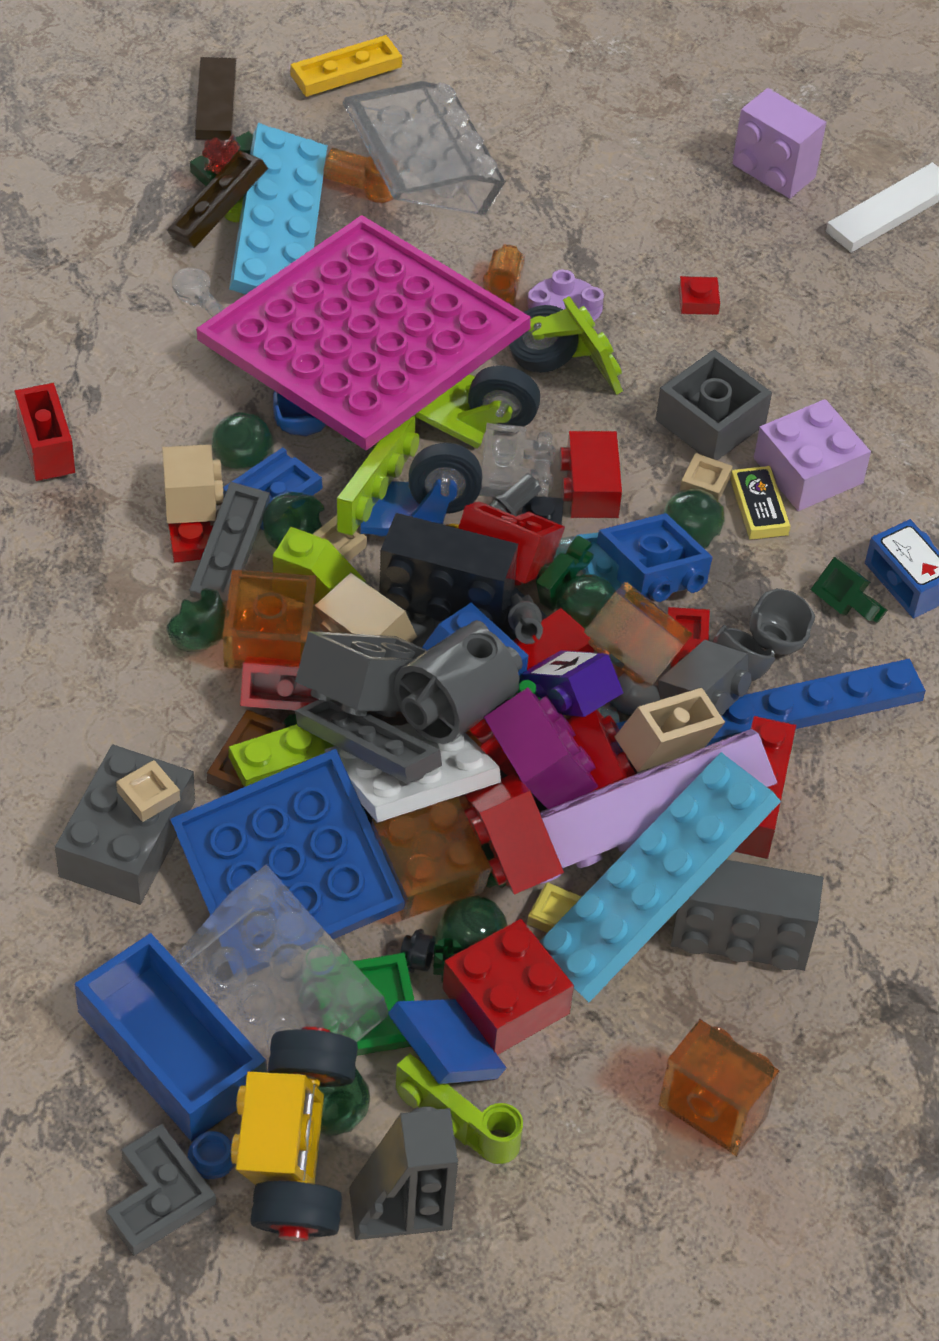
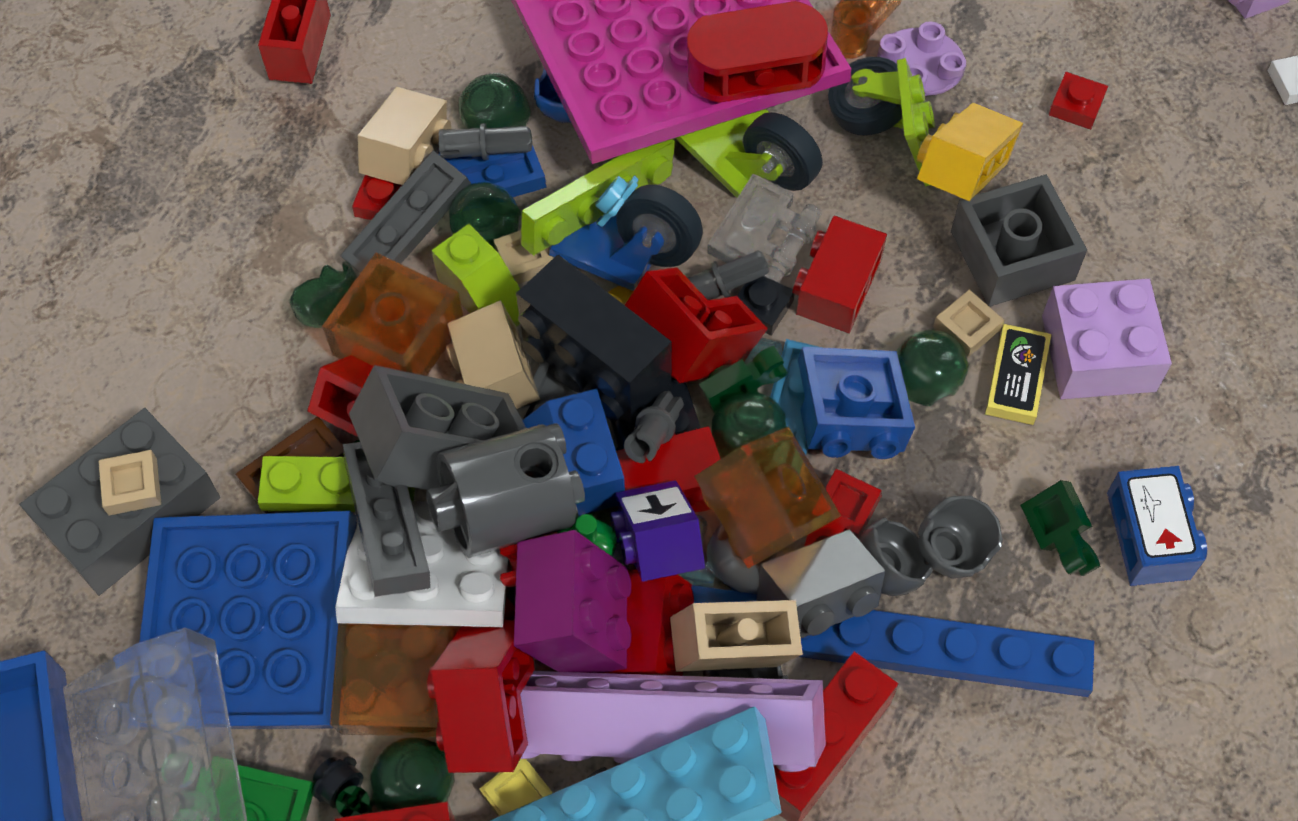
camera: 30 degrees right, 10 degrees up
(263, 464) = (484, 141): none -> dark grey axle
(401, 467) = (614, 197): none -> medium azure plate
(456, 324) = (757, 51): none -> red brick
(646, 350) = (968, 151): none -> yellow brick

